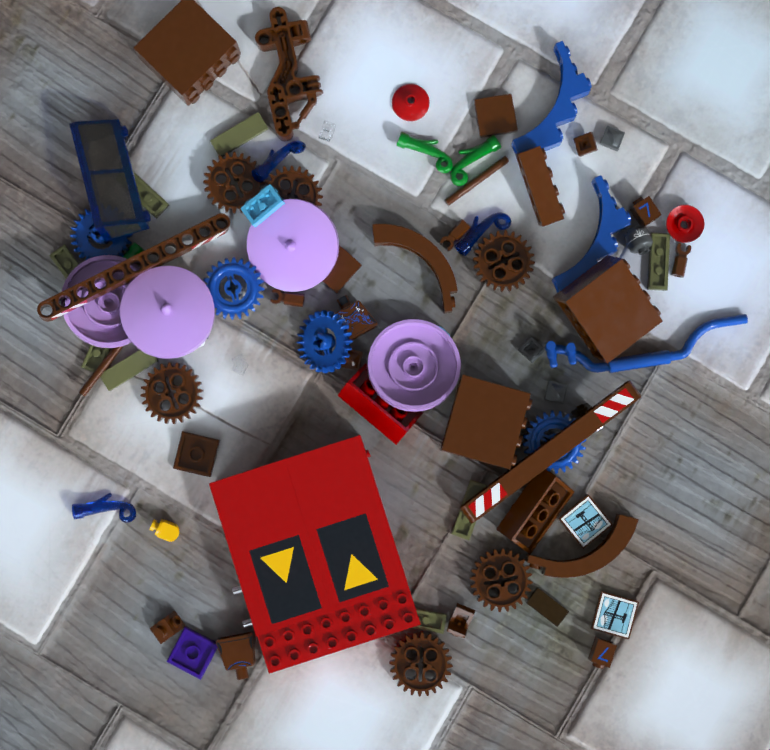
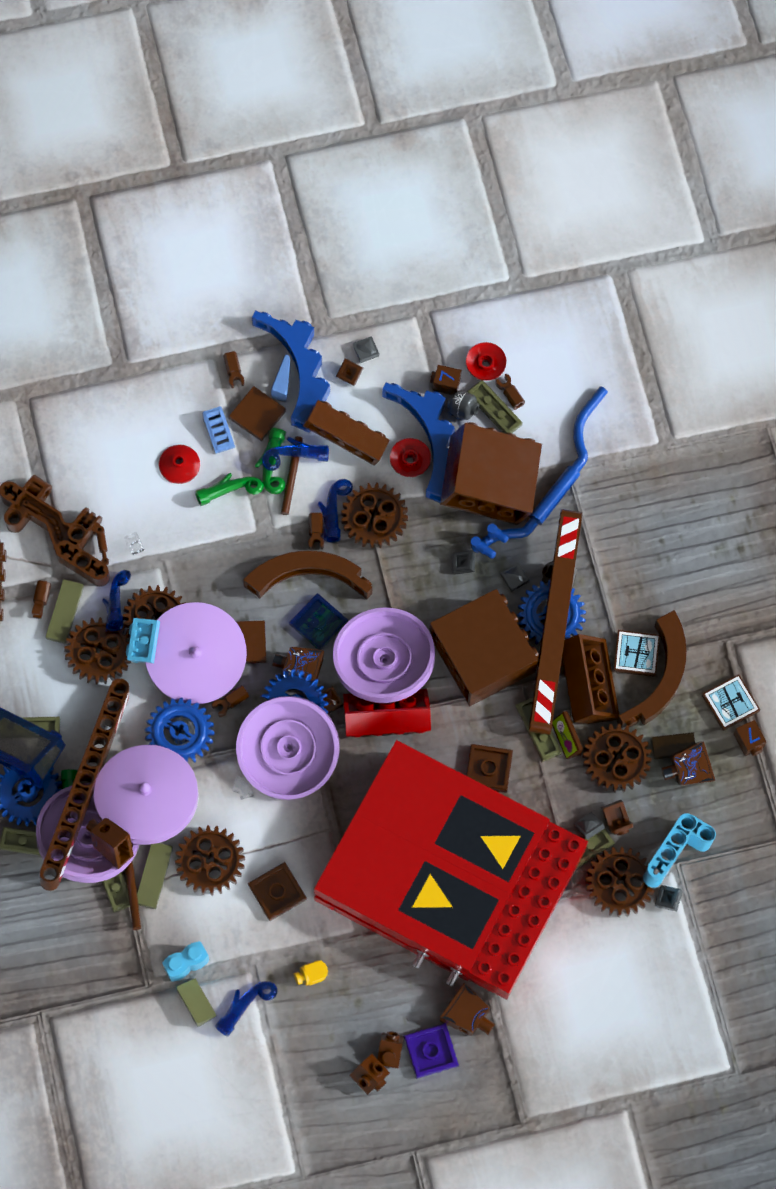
camera: 45 degrees left, 15 degrees down
(76, 477) = (196, 1002): none -> olive slope
(95, 446) = (181, 963): none -> medium azure brick
(109, 323) = (111, 841): none -> reddish brown torso
(136, 633) = (370, 1074): none -> reddish brown brick
(231, 111) = (40, 598): none -> reddish brown bar
(290, 367) = (287, 747): none -> lavender container
(396, 299) = (318, 622): none -> clear blue tile
(411, 504) = (490, 766): none -> reddish brown tile
(437, 607) = (589, 825): none -> dark grey tile
(441, 704) = (668, 898): none -> dark grey tile
(465, 88) = (212, 414): none -> medium blue slope
(473, 681) = (672, 851): none -> medium azure beam
(483, 533) = (567, 735): none -> slope
(497, 167) = (297, 449): none -> clear blue plant
(510, 68) = (233, 368): none -> reddish brown bar
(532, 108) = (280, 386): none -> medium blue slope
(543, 633) = (690, 765): none -> reddish brown torso
(569, 234) = (412, 449): none -> red dish

